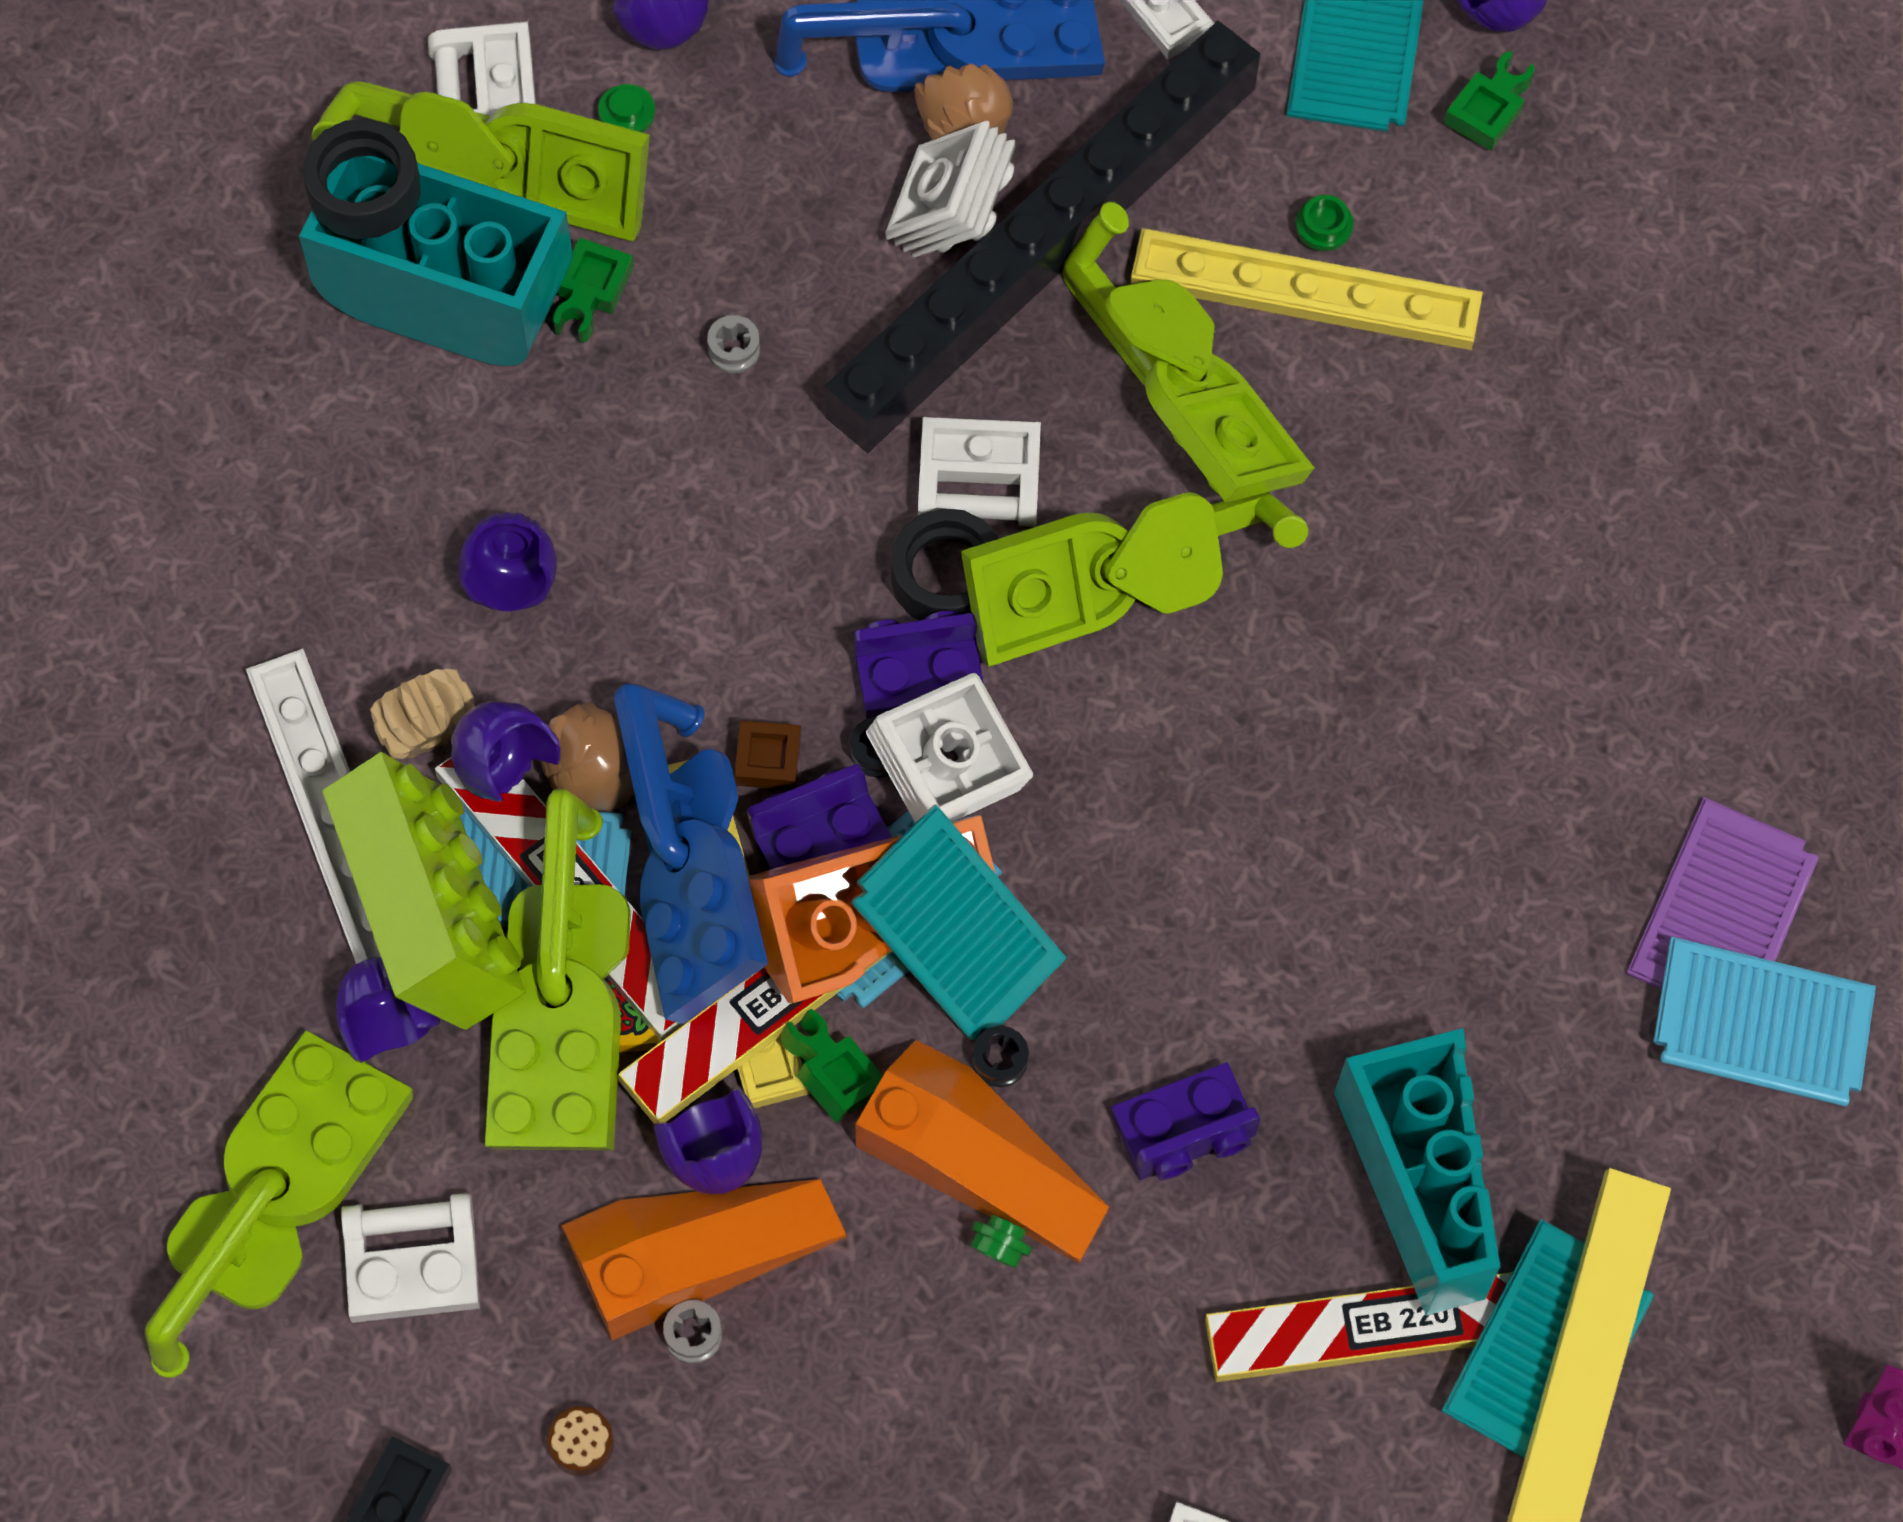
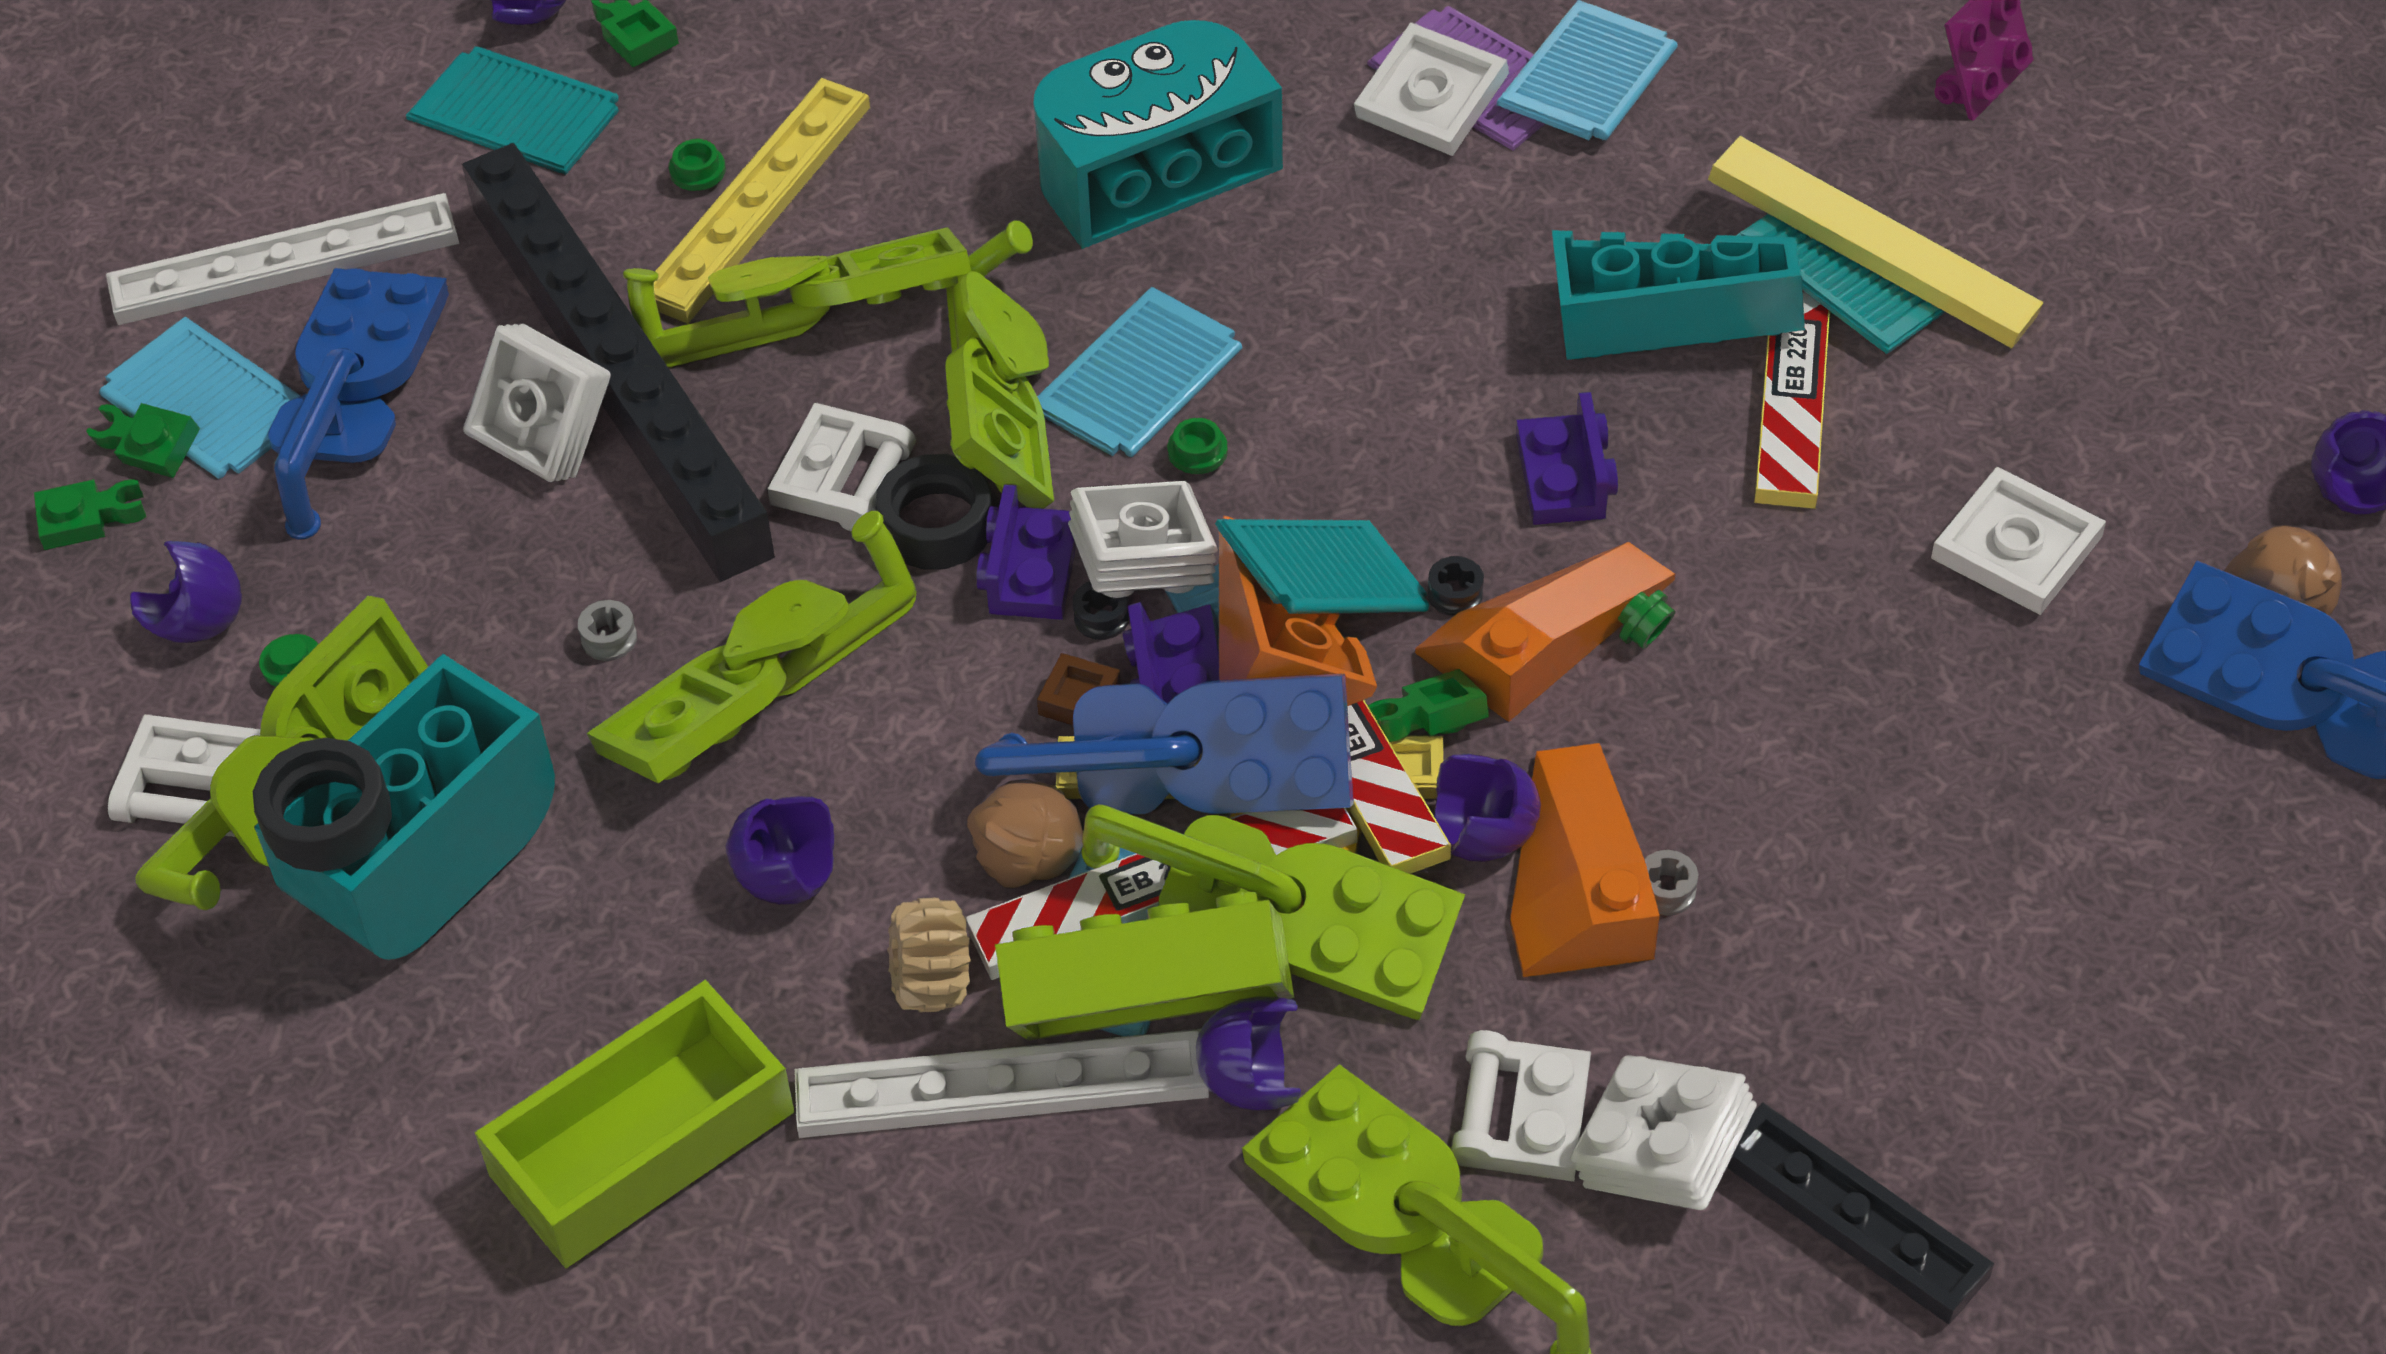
camera: 70 degrees left, 15 degrees down
(201, 541) = (635, 1123): none -> lime piece
(412, 1411) = (1664, 1132): none -> white brick
(496, 747) = (1004, 883): dark purple hair -> none
(580, 1441) = (1756, 999): tile -> none
(693, 461) = (732, 683): none -> lime plate
(963, 99) = (446, 376): medium nougat hair -> none
(1103, 776) = (1197, 446): none -> green plate
(1192, 698) = (1138, 374): none -> medium azure window
(1484, 606) = (1154, 127): none -> teal brick
(1663, 866) = (1431, 88): none -> white plate

